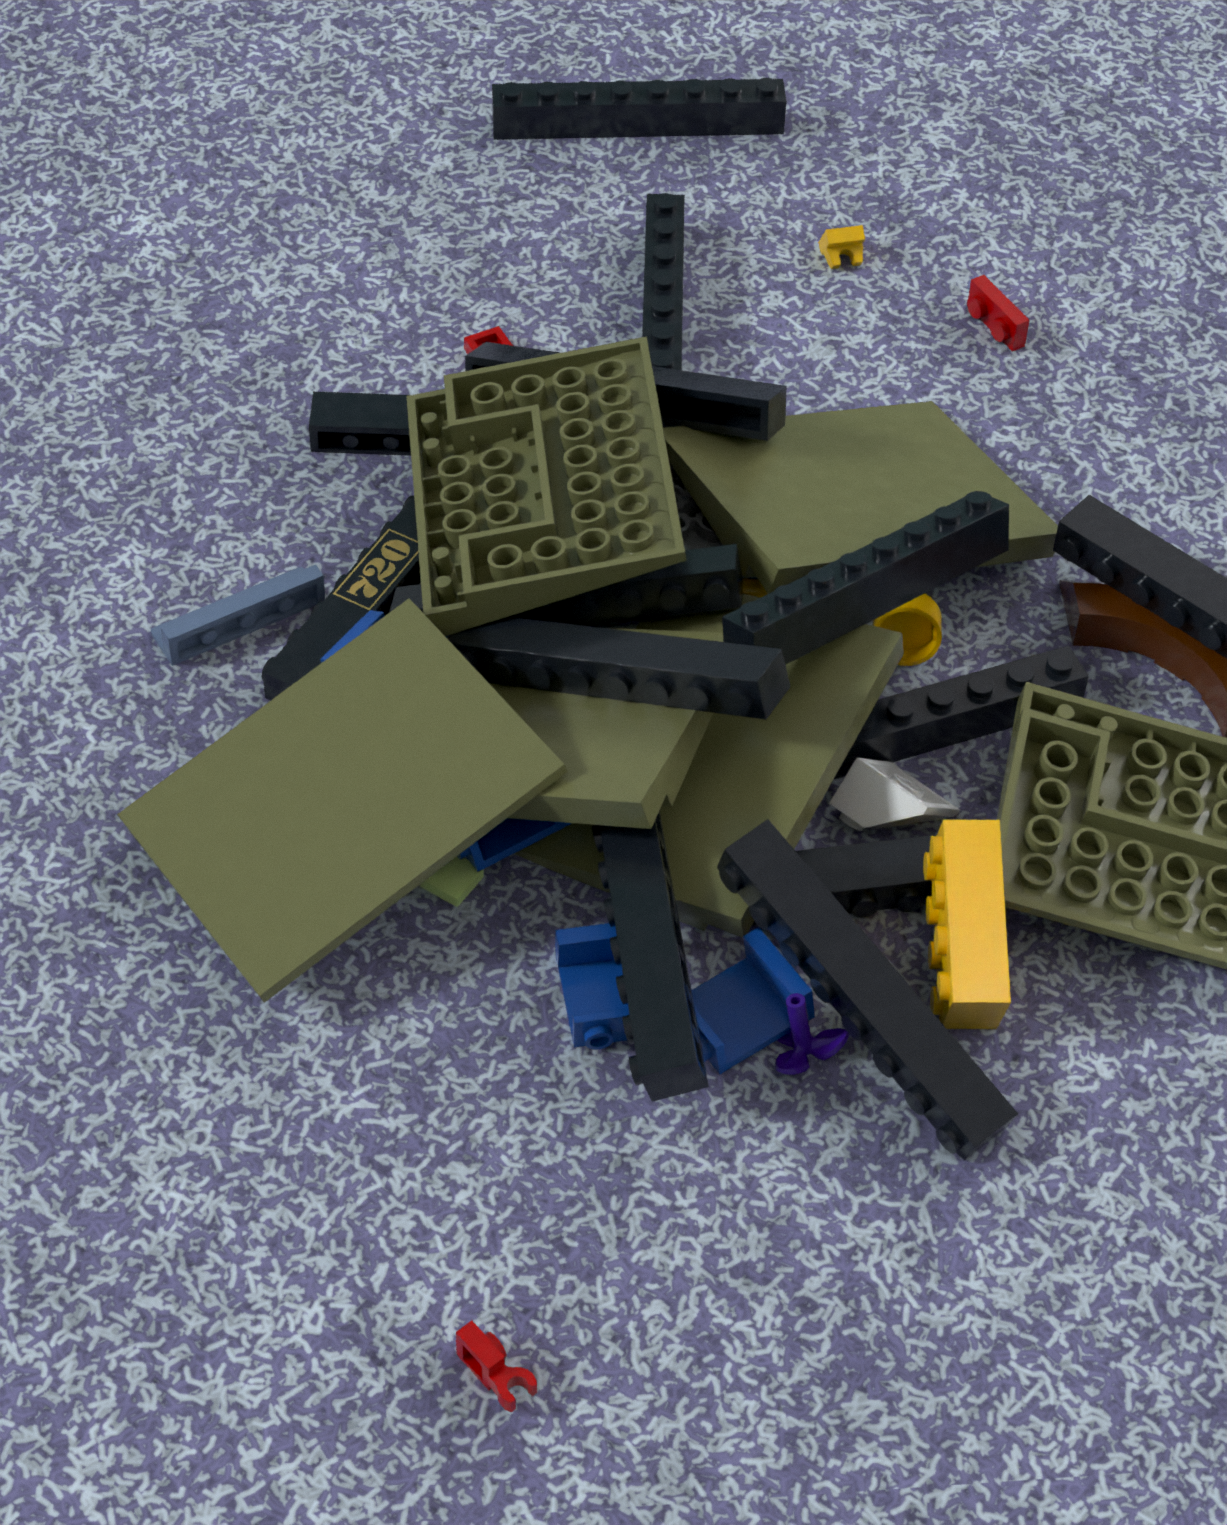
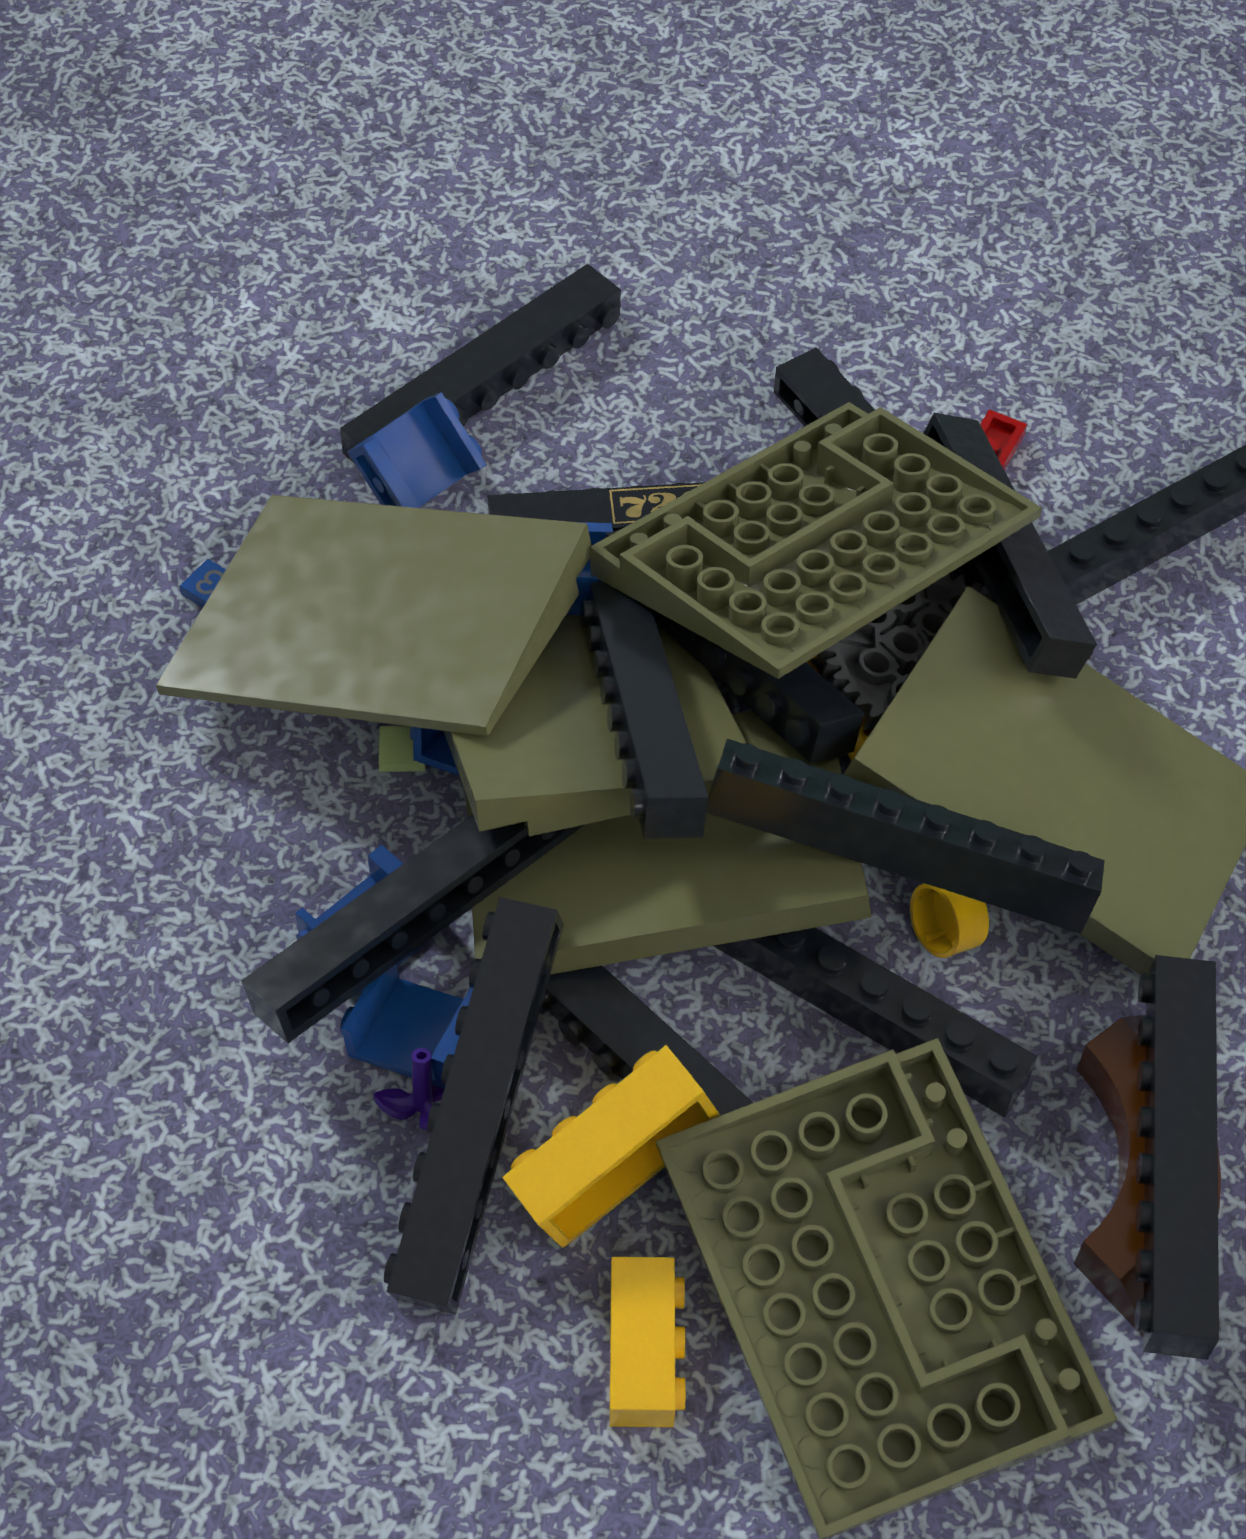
camera: 55 degrees right, 5 degrees up
(115, 614) = (503, 354): none -> black brick
(158, 918) = (202, 582): none -> blue tile
(169, 693) = (418, 454): none -> blue panel
(240, 614) = (552, 449): sand blue panel -> none
(884, 796) = (747, 1013): white slope -> none
(1121, 1015) = (645, 1342): none -> yellow brick

